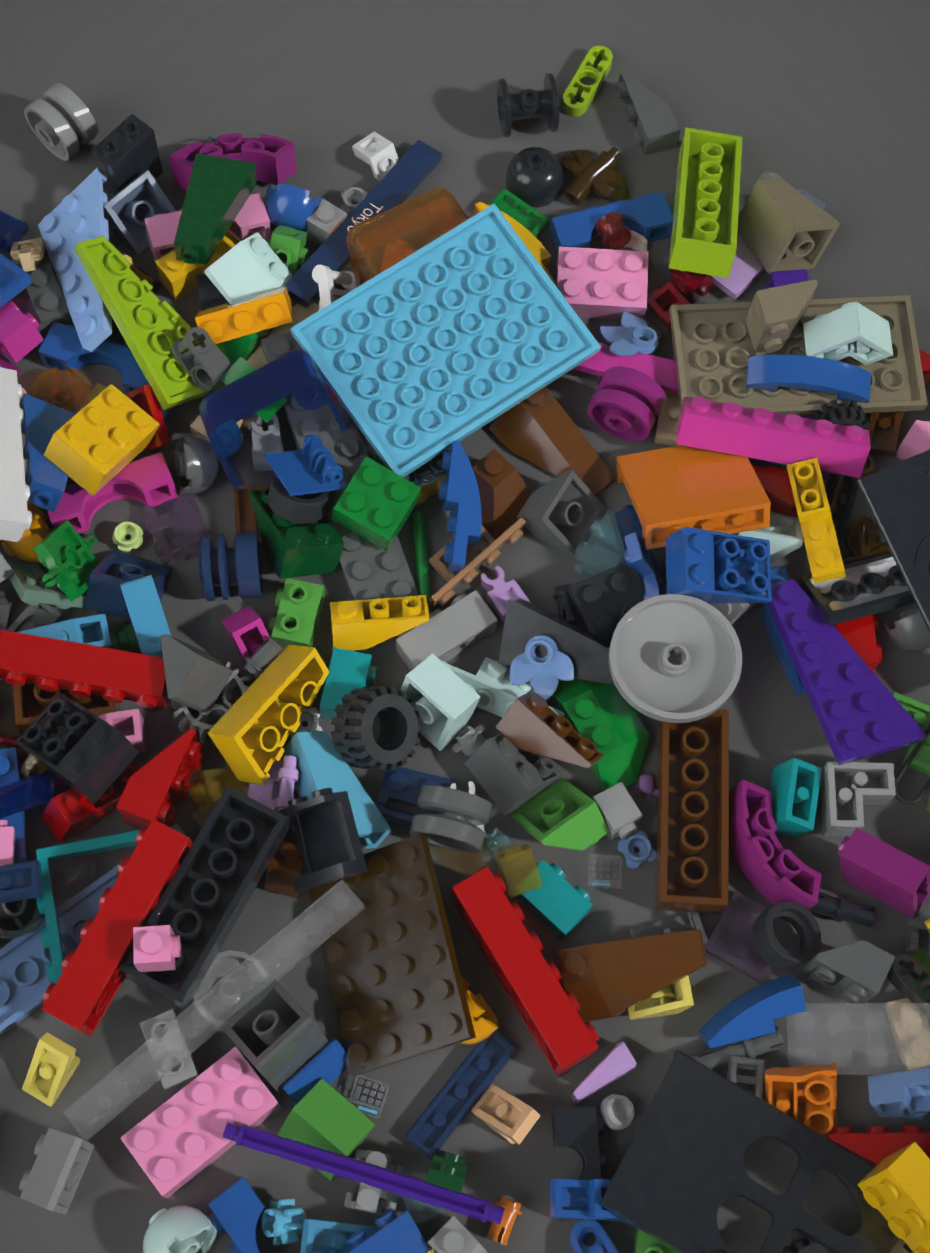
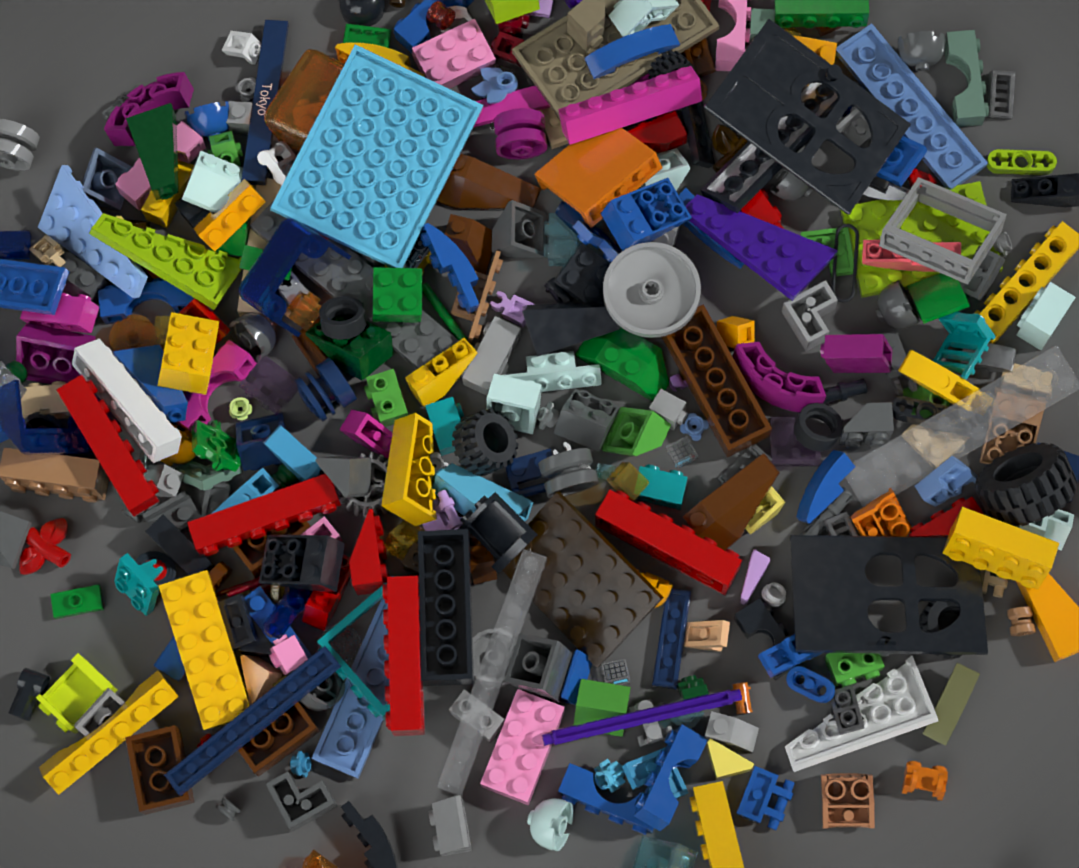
camera: 20 degrees left, 5 degrees up
(50, 1069) = (408, 770): light yellow slope -> none
(127, 154) = (75, 144): black panel -> none
(155, 948) = (439, 653): bright pink brick -> none
(203, 360) = (220, 261): dark grey piece -> none
(255, 465) = (304, 309): none -> clear orange brick
(262, 657) = (383, 438): dark grey pin -> none
(307, 469) = (339, 297): blue hinge -> none
(539, 670) = (570, 345): medium blue plate -> none
(541, 731) = (591, 384): reddish brown slope -> none
(751, 764) = (736, 330): none -> light orange panel
(794, 796) = (775, 336): teal brick -> none
(816, 520) = (690, 146): yellow slope -> none

